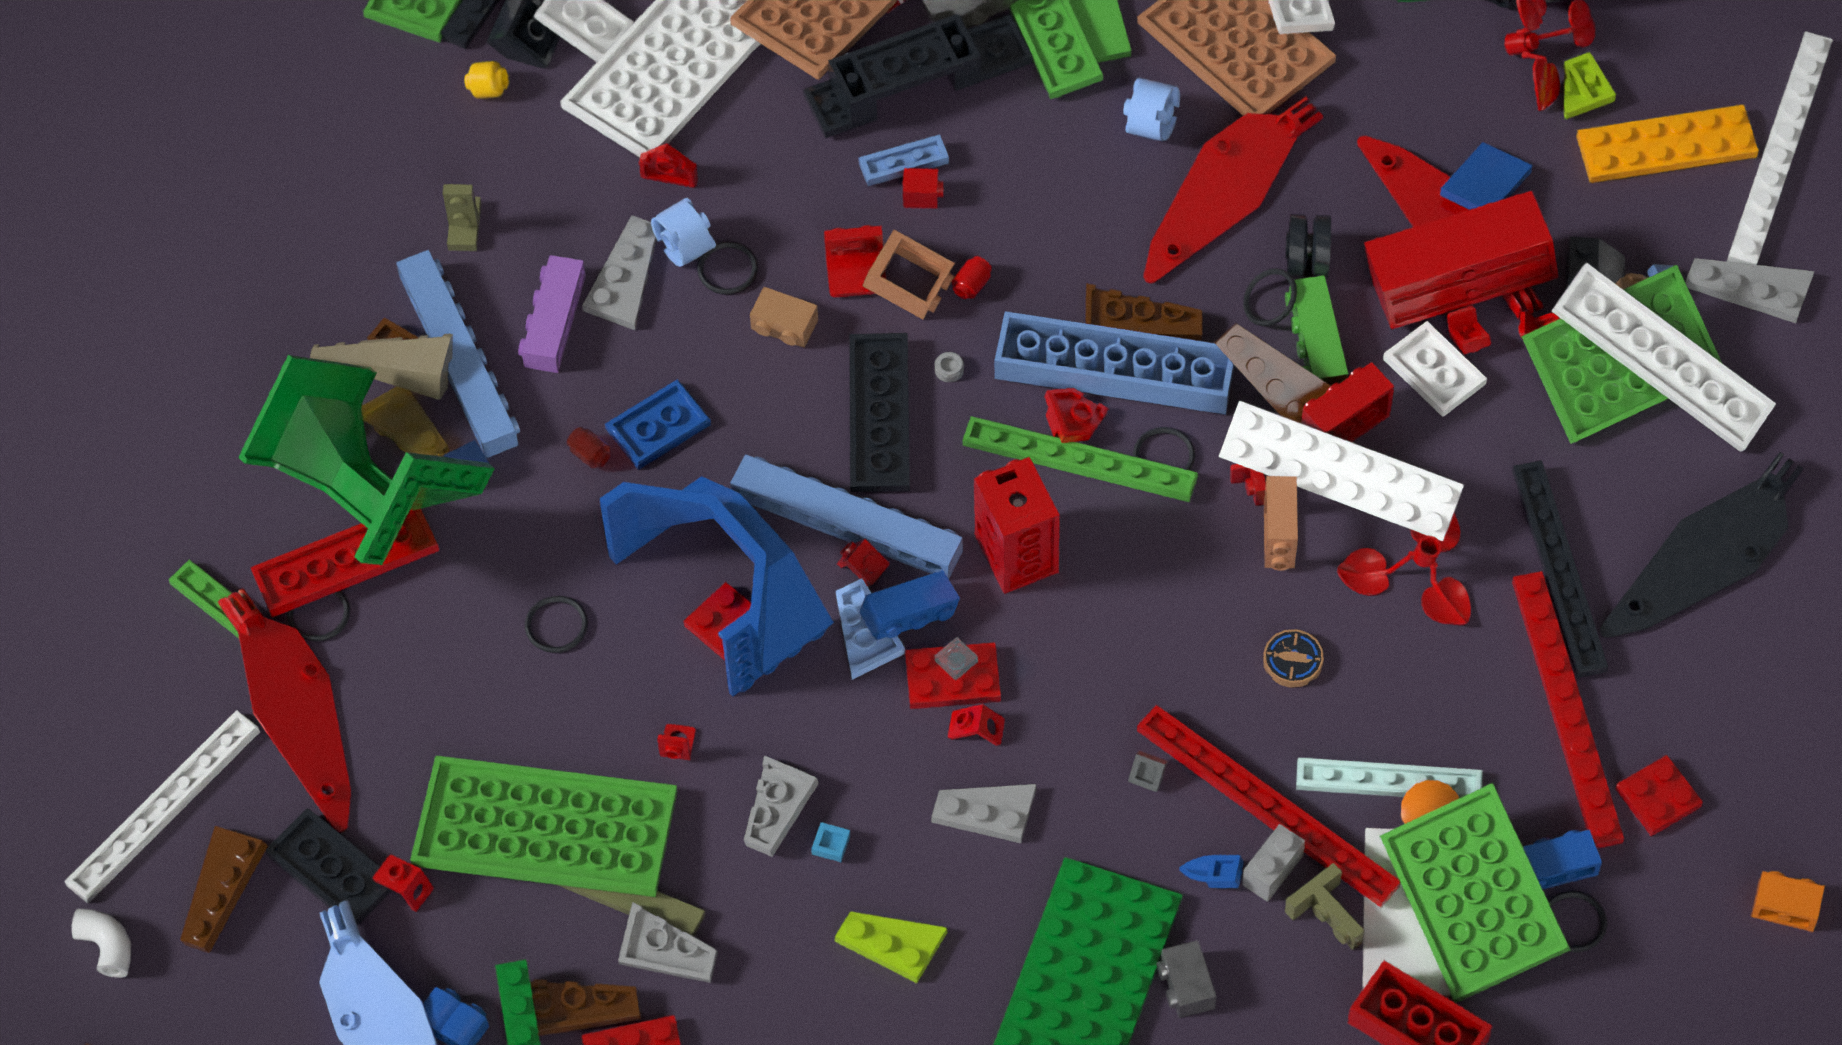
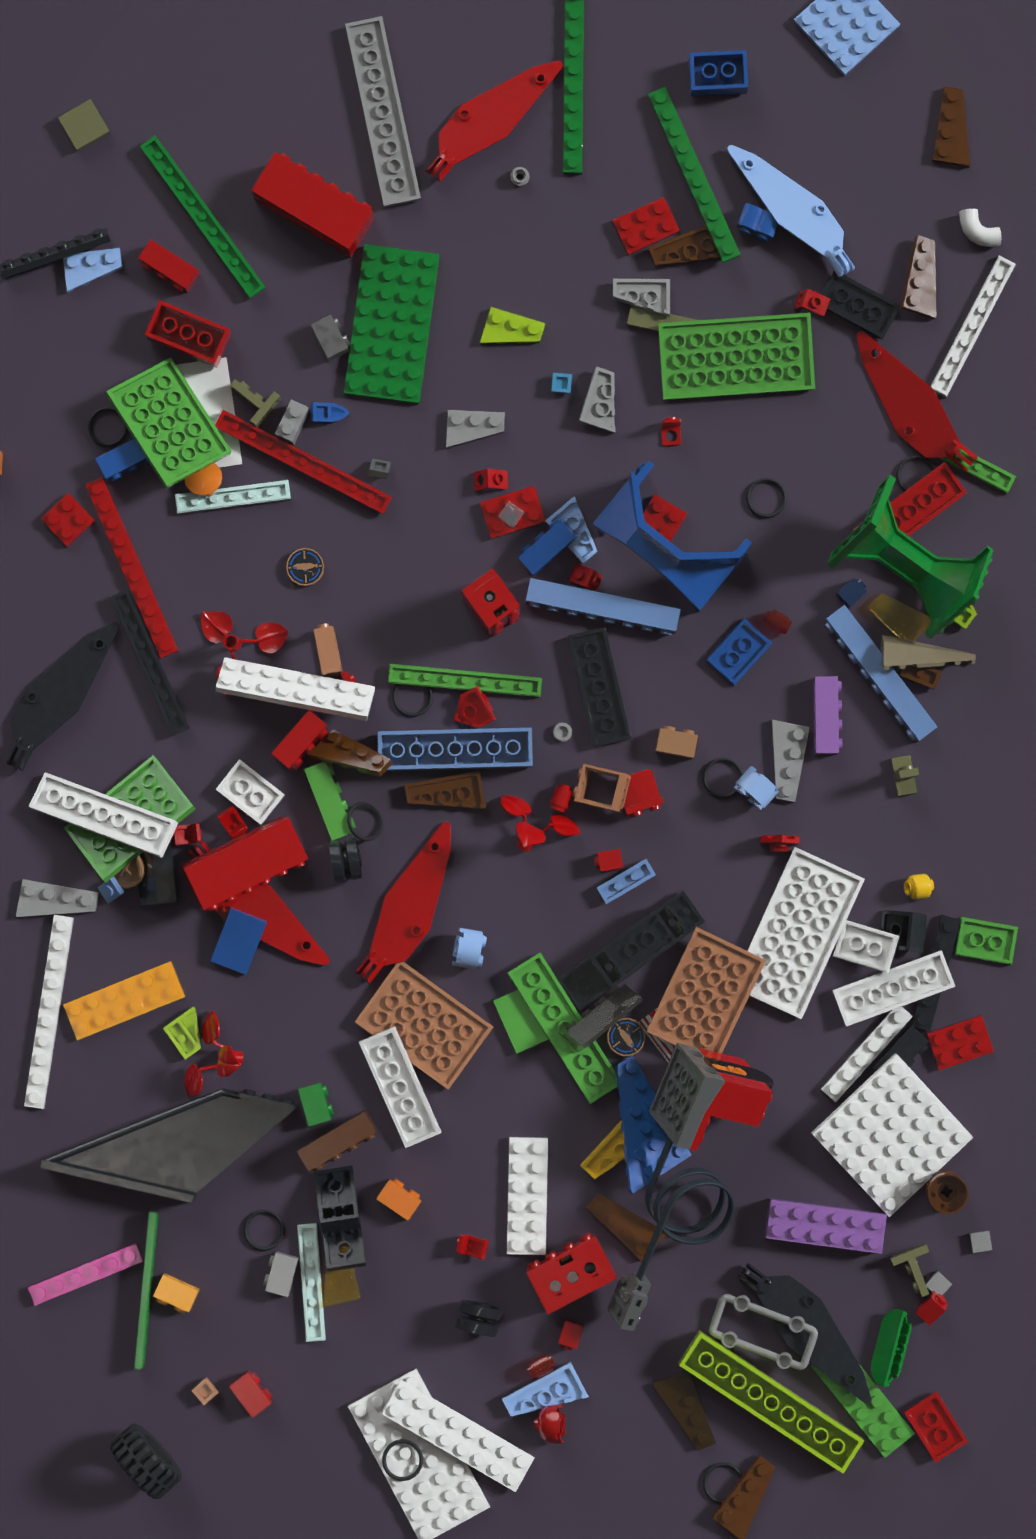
camera: 165 degrees right, 25 degrees up
(1031, 201) = (530, 835): none -> red plant

